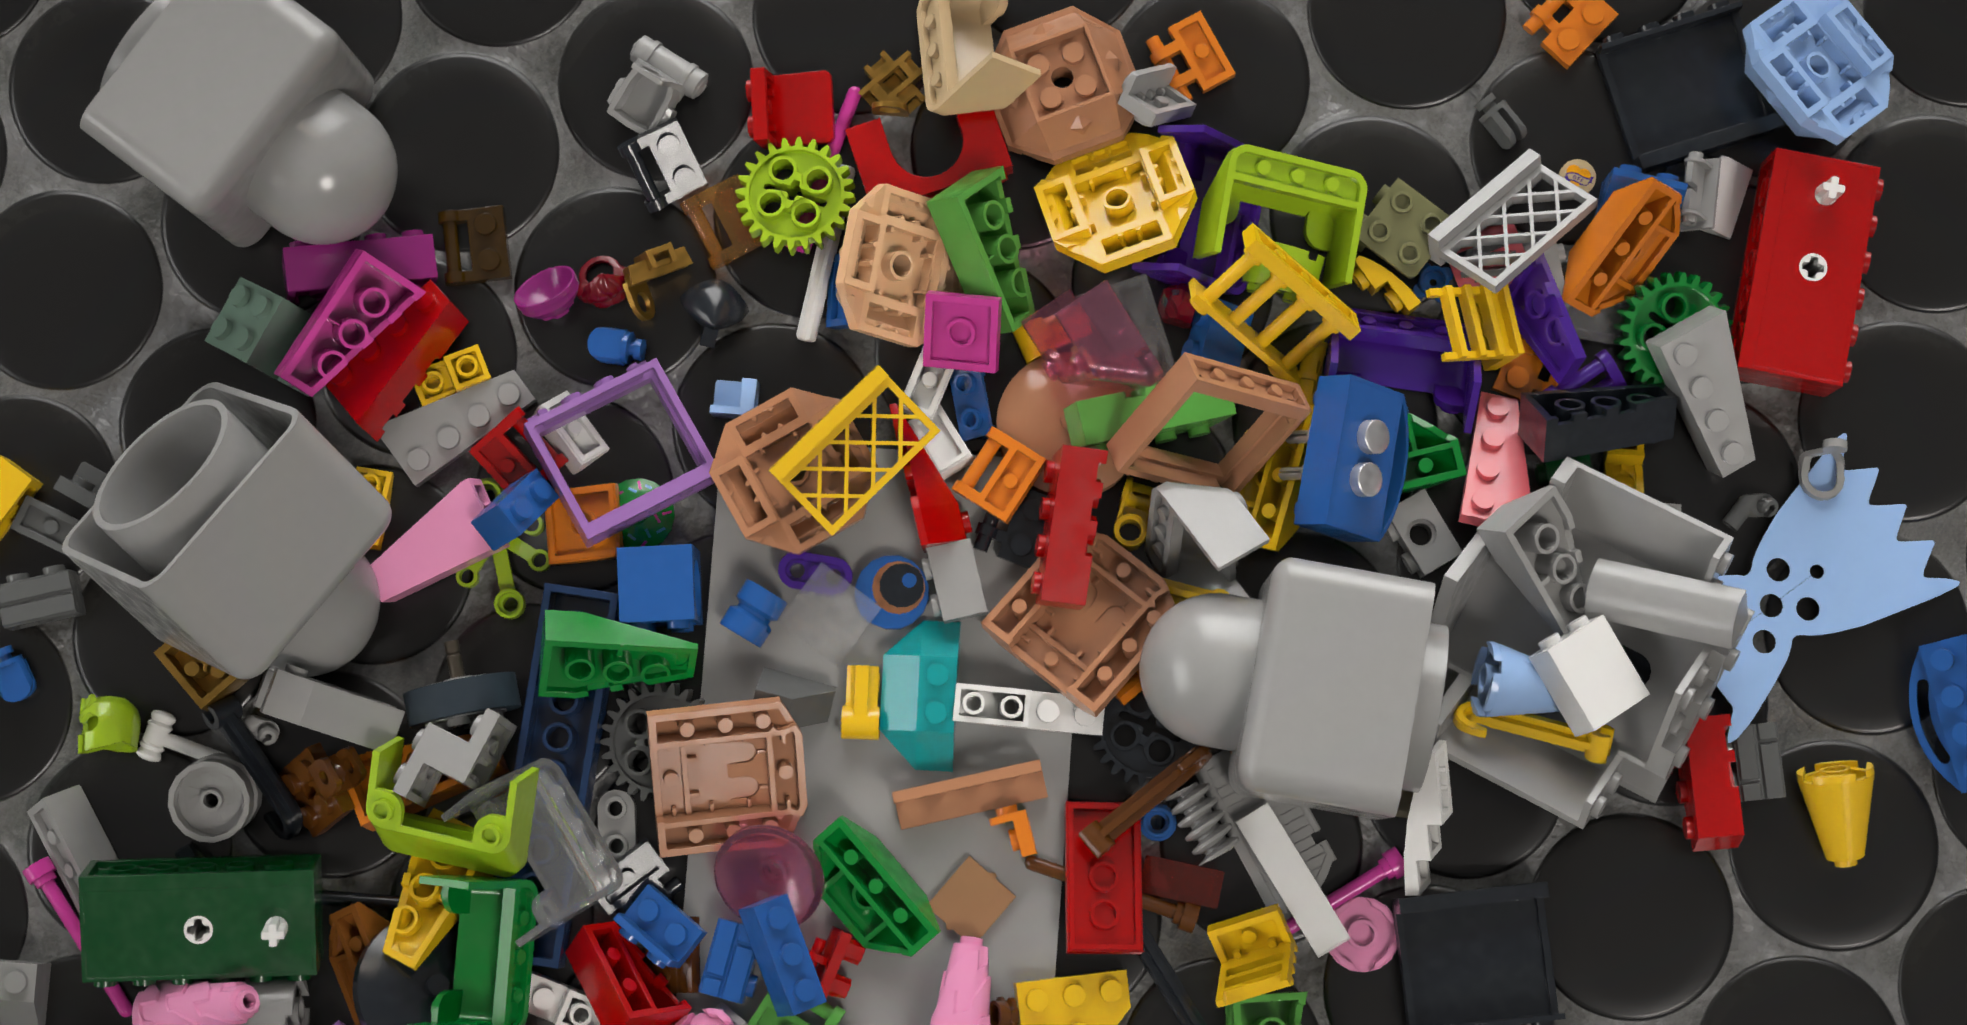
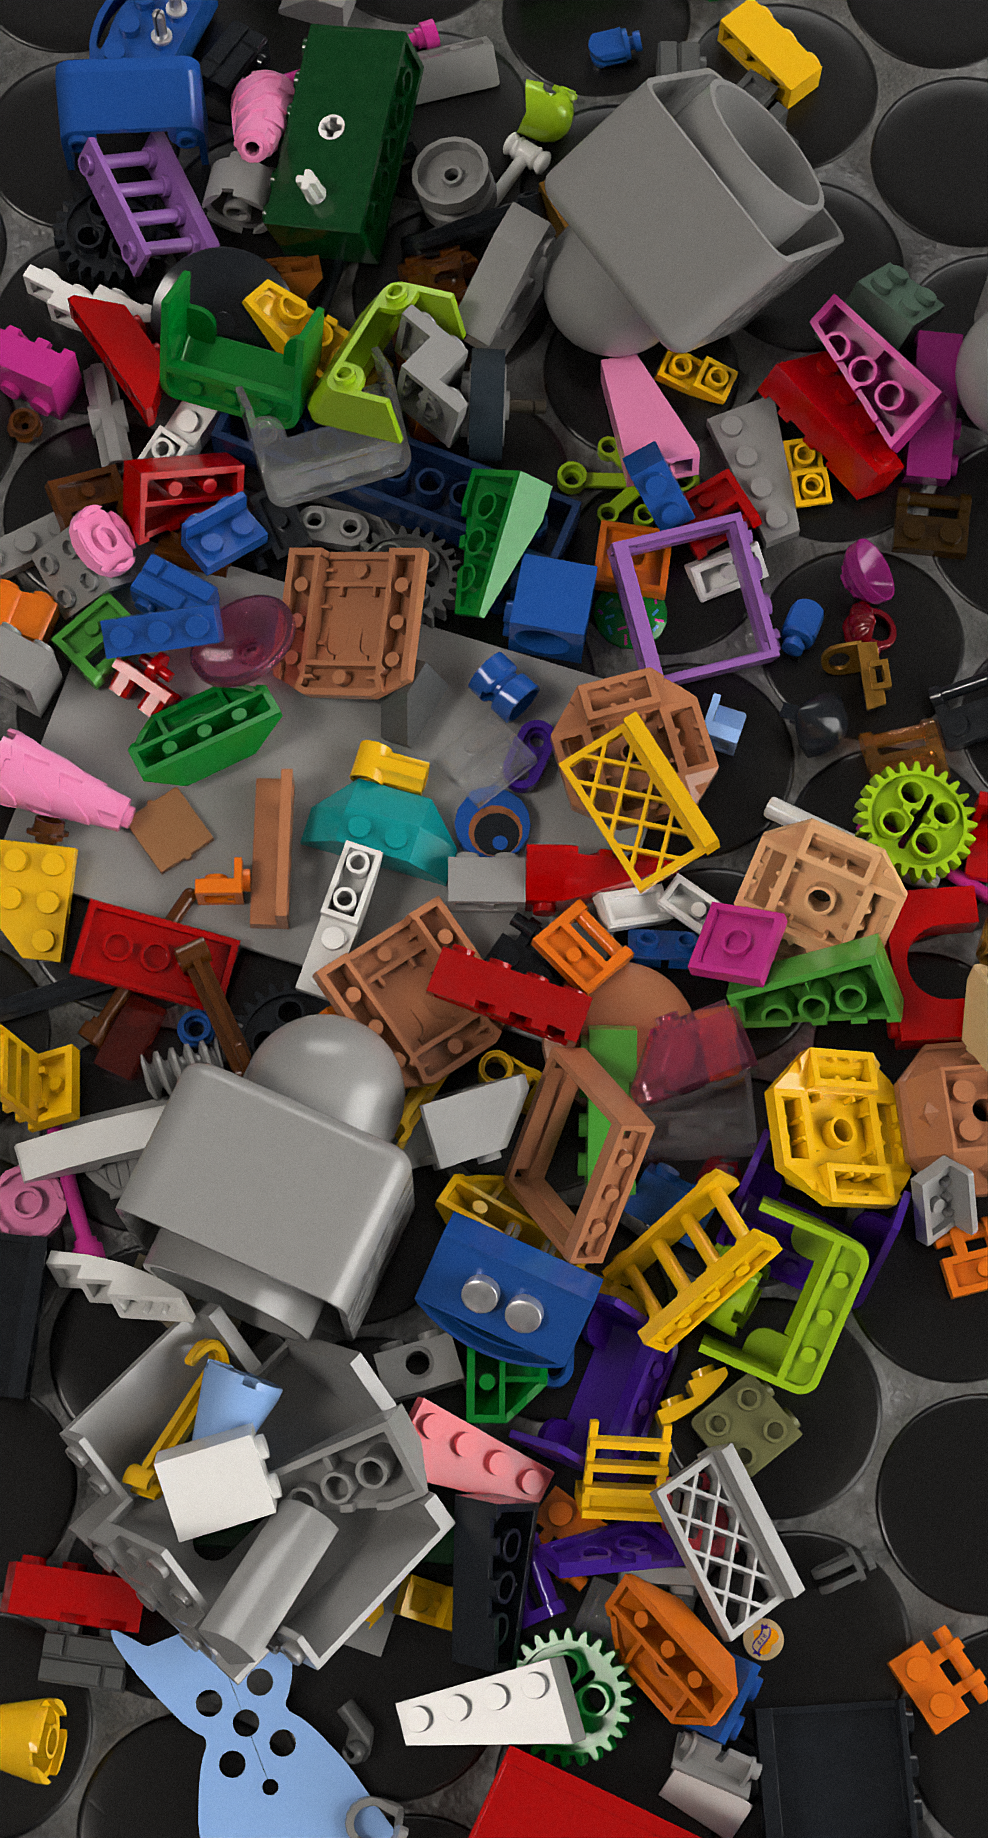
camera: 90 degrees right, 10 degrees down
(1429, 272) = (682, 1441): blue plate -> none

